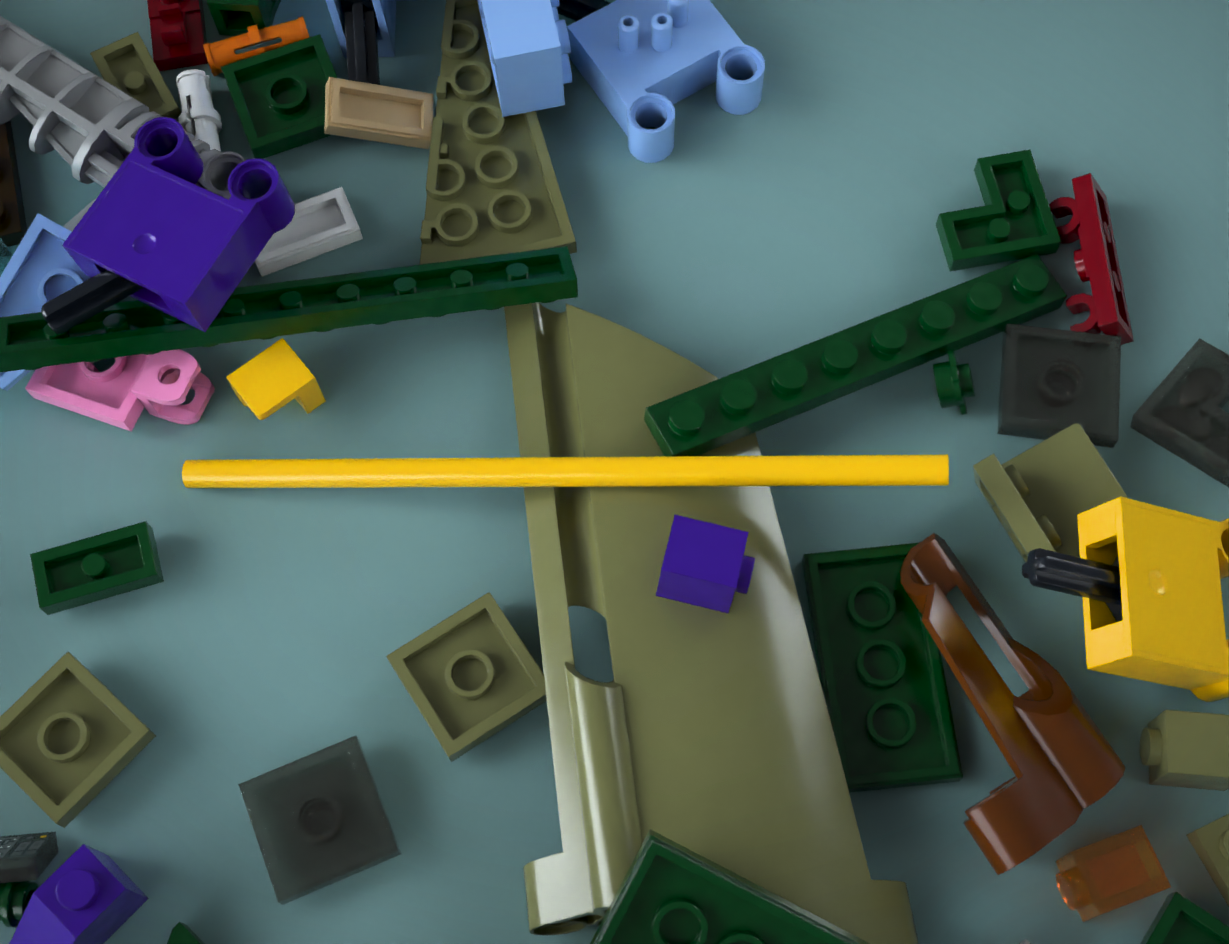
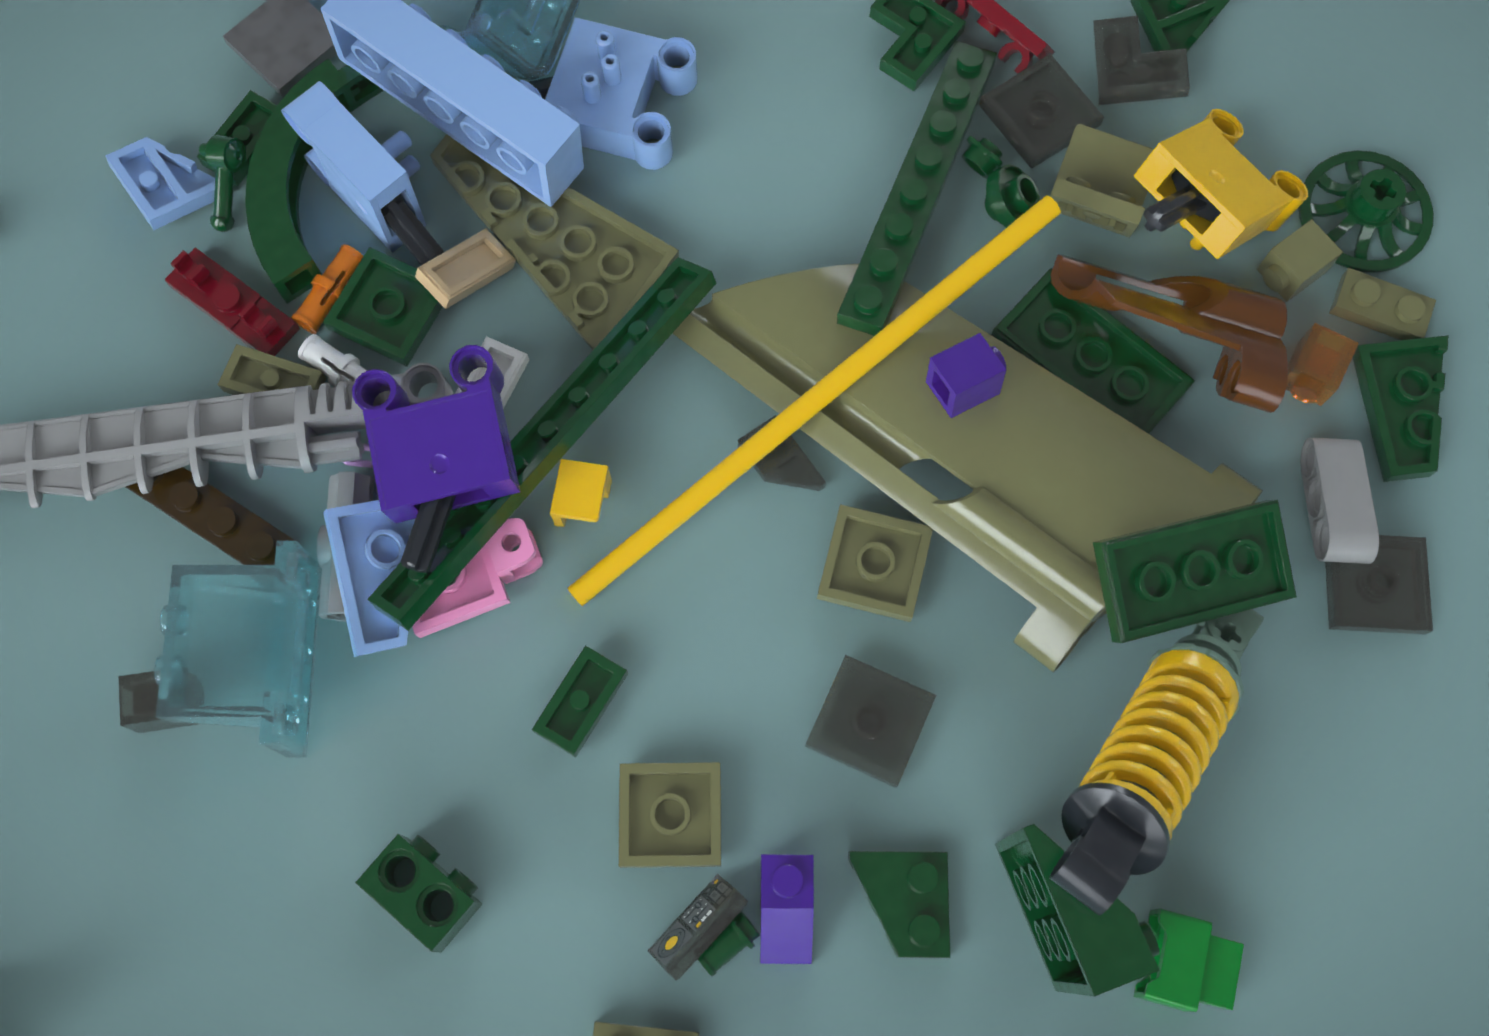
camera: 45 degrees left, 5 degrees up
(487, 517) = (787, 464): none -> clear smoke tile
(949, 430) = (1009, 194): none -> dark green plate

